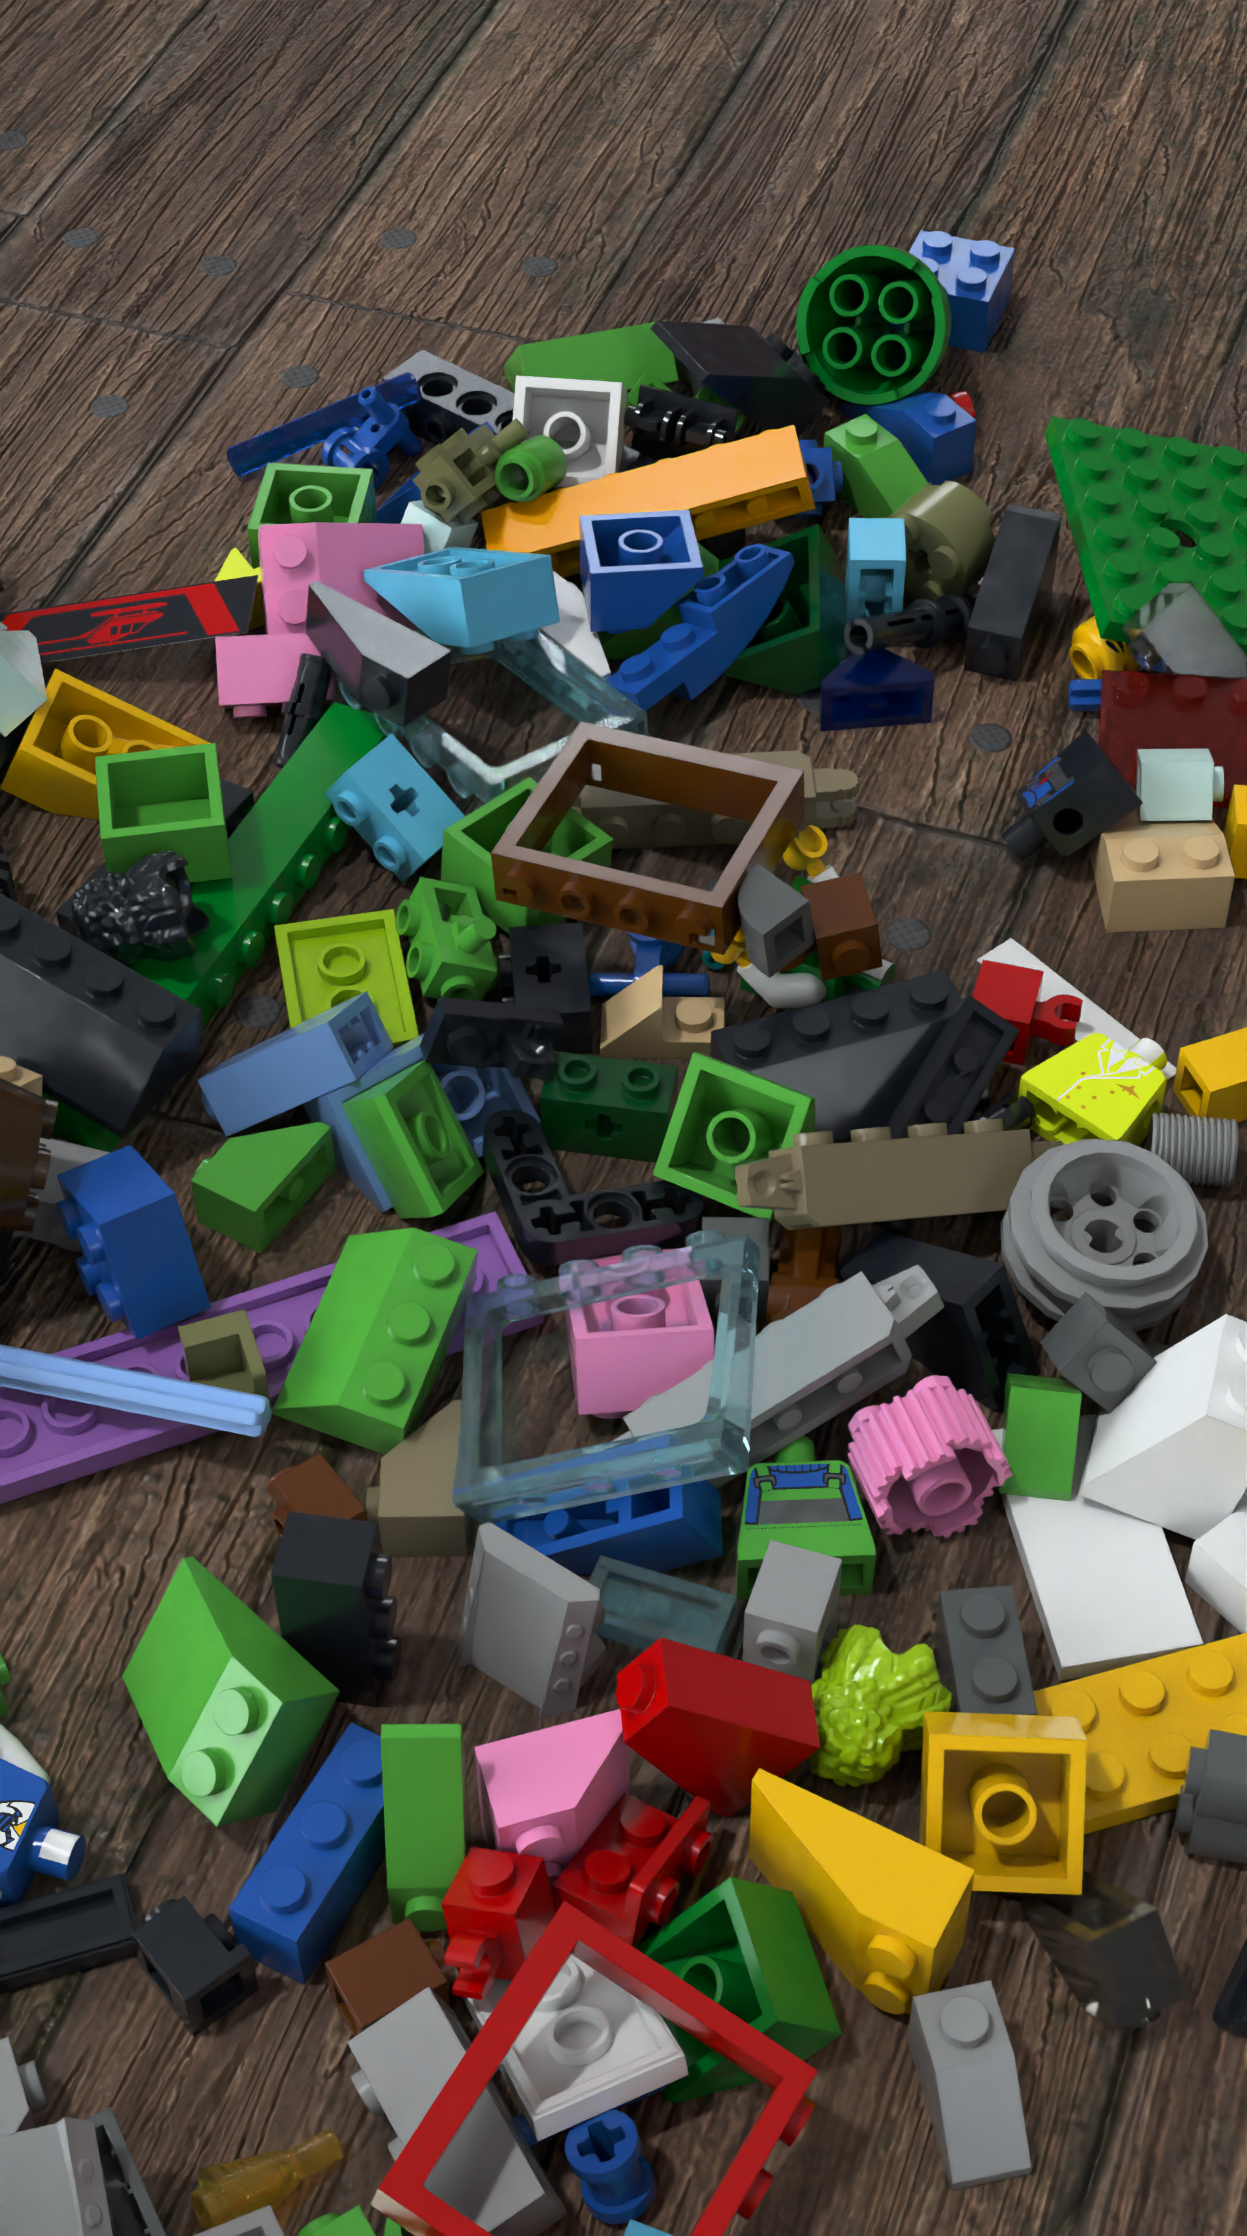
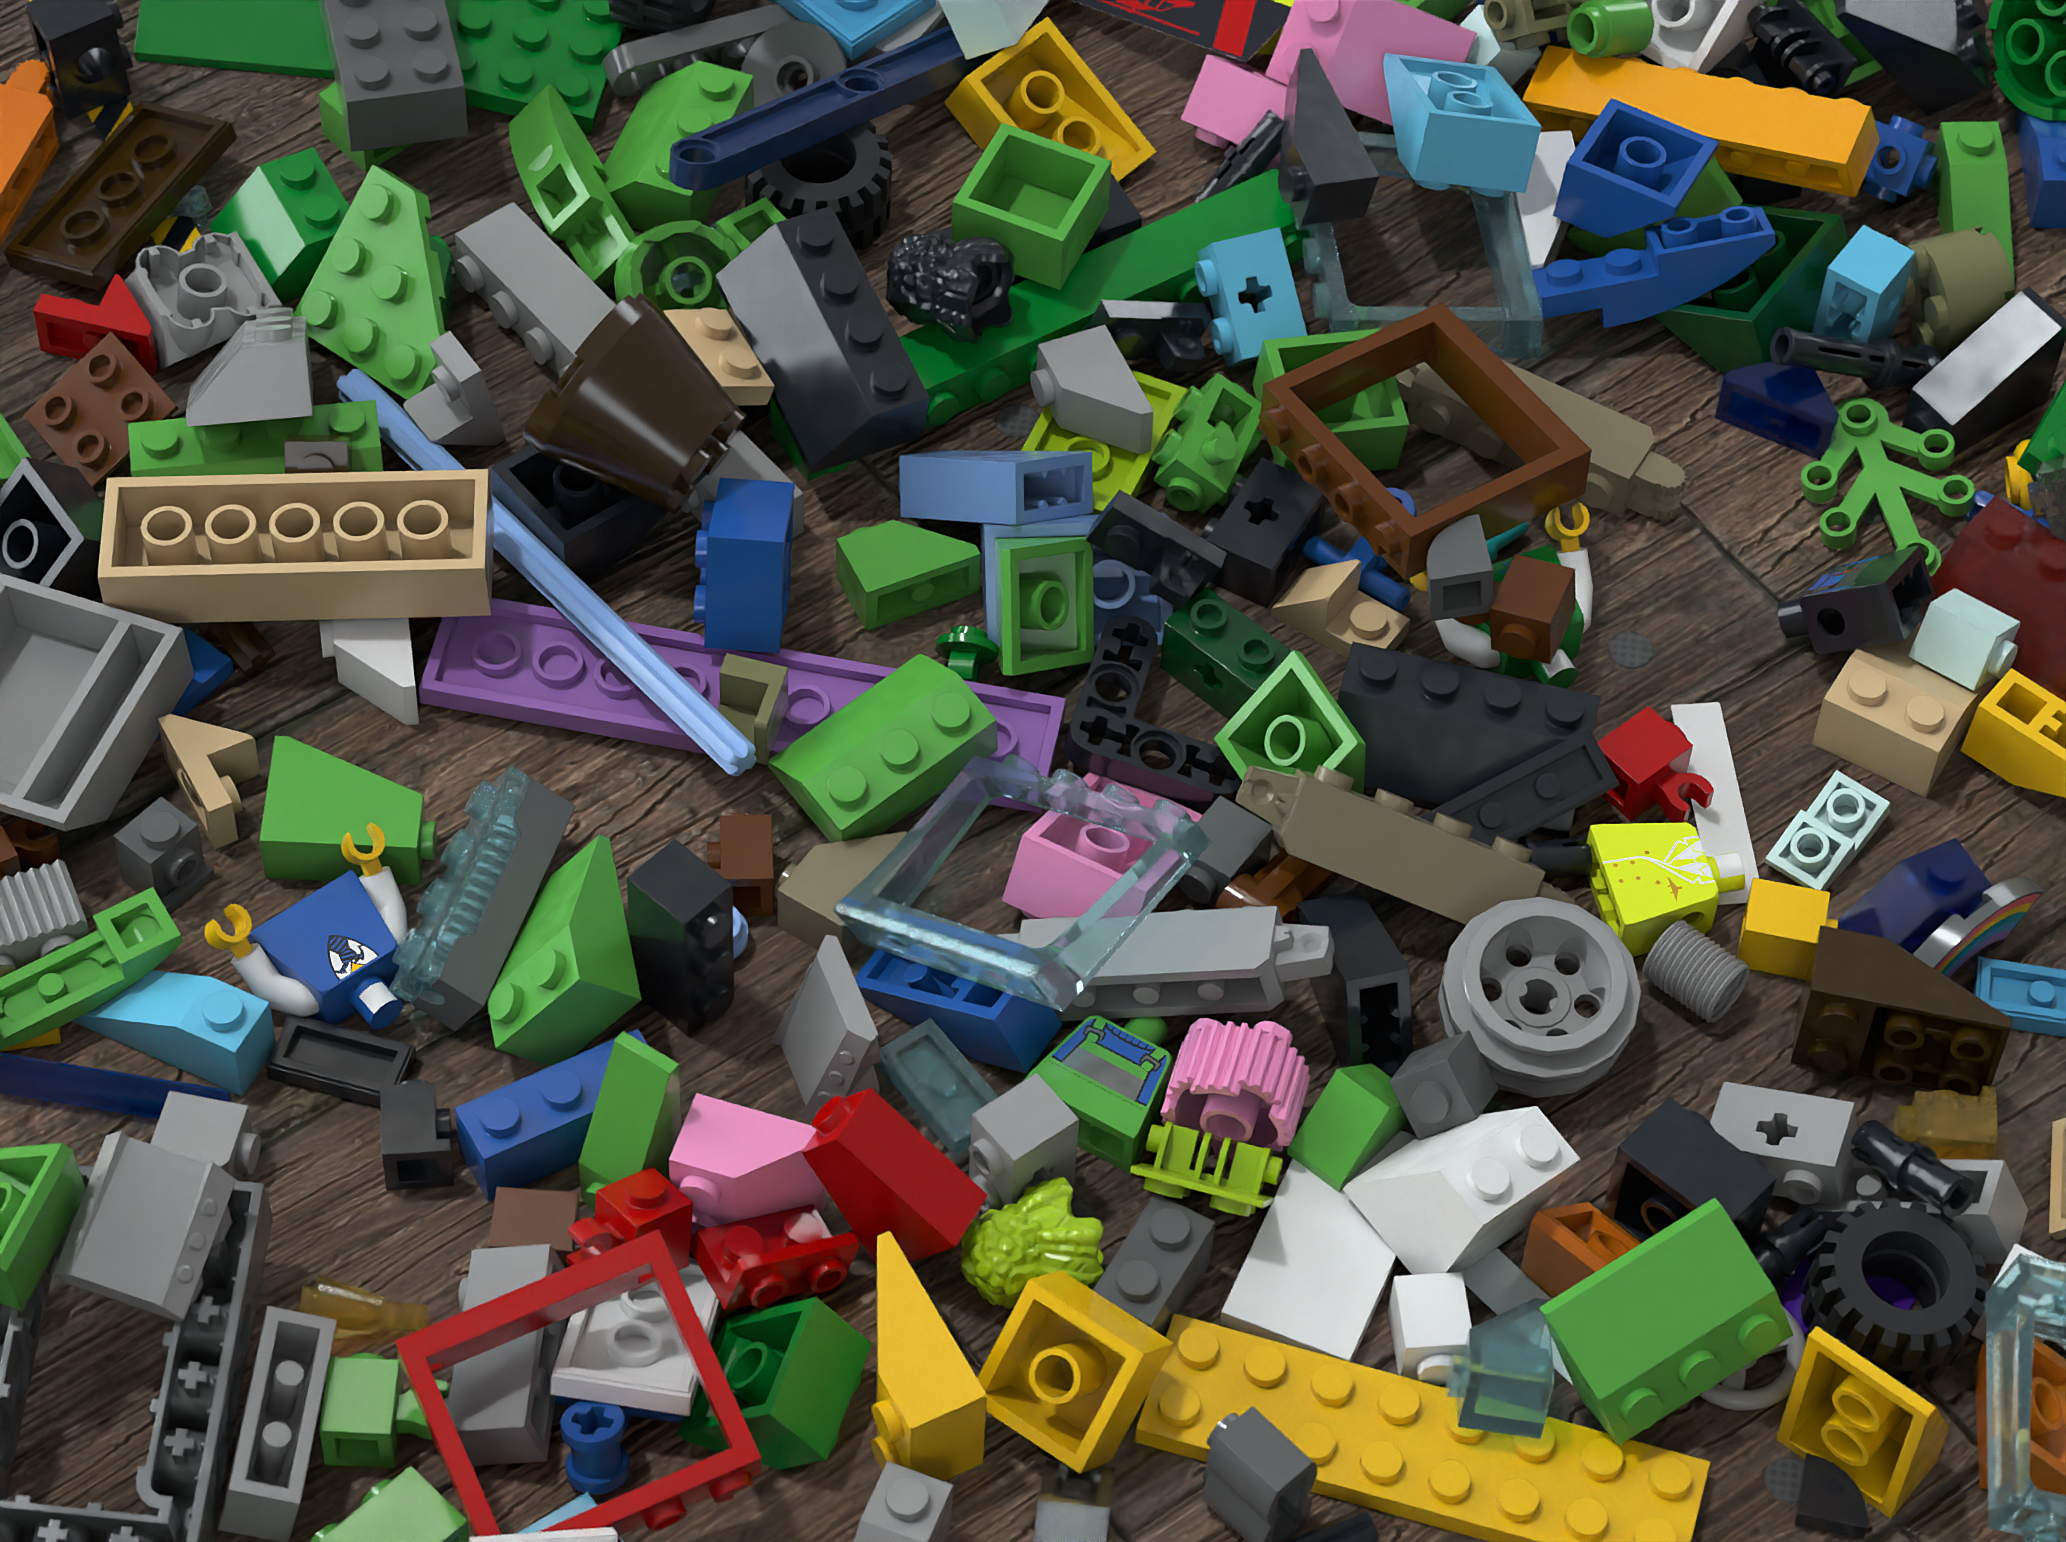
camera: 30 degrees right, 5 degrees up
(95, 1690) = (481, 897): none -> piece
(325, 943) = (1093, 390): none -> light grey slope
(327, 878) = (1156, 331): none -> black hinge
(372, 1213) = (966, 650): none -> green plate
(979, 1540) = (1174, 1178): none -> lime hinge
(996, 708) = (1884, 478): none -> bright green plant
(1186, 989) = (1829, 833): none -> light aqua slope

